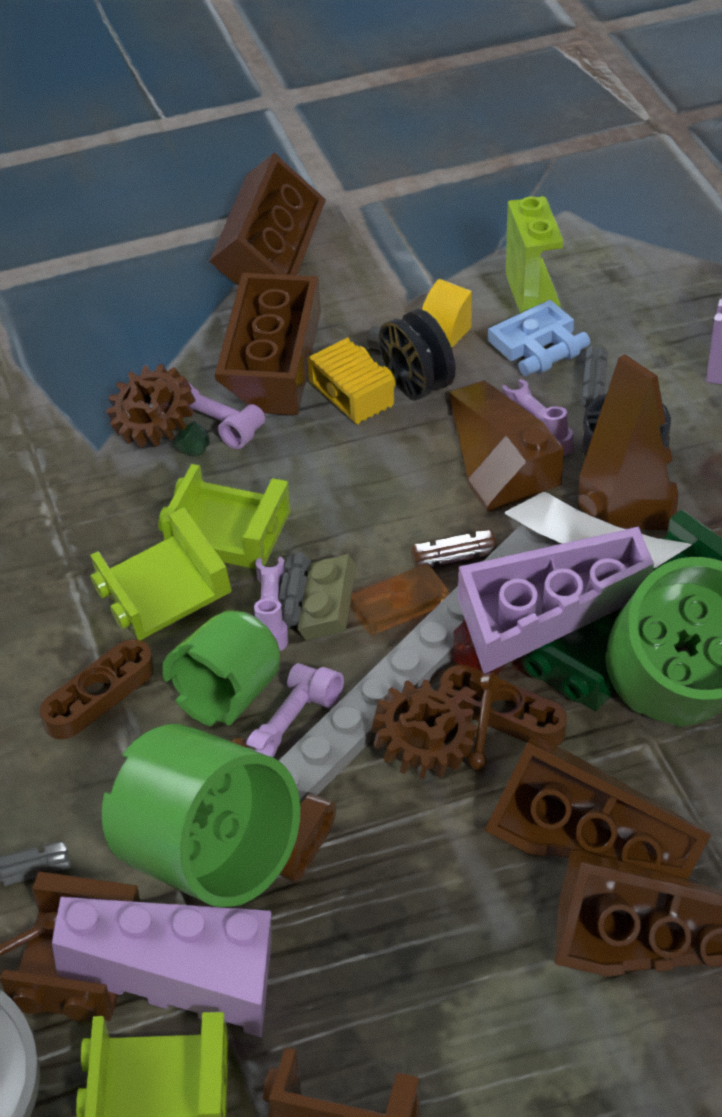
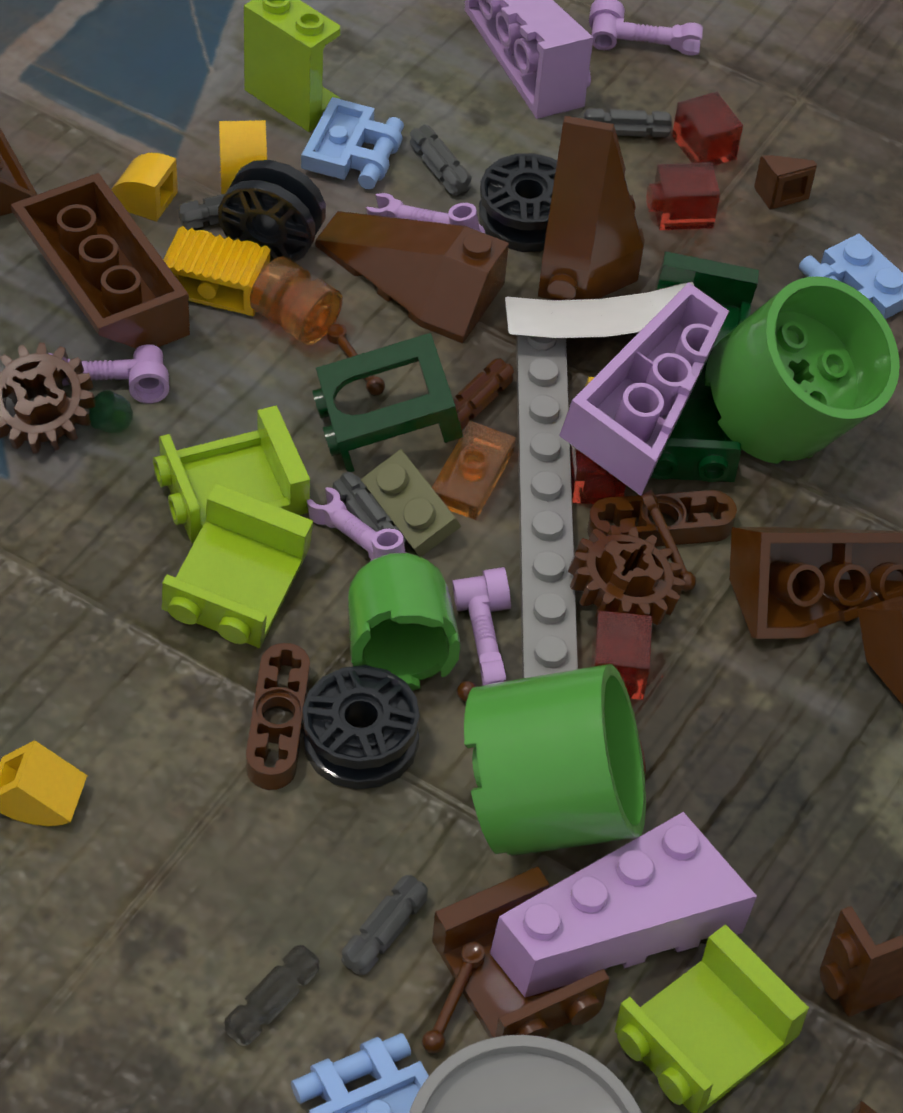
camera: 45 degrees left, 5 degrees up
(124, 712) = (364, 755): none -> black wheel
(364, 307) = (148, 185): none -> yellow brick
(364, 781) = (626, 644): none -> clear red brick
(382, 422) = (290, 298): none -> clear orange wheel
(399, 536) = (360, 430): none -> dark green panel
(400, 463) = (337, 335): none -> reddish brown hinge

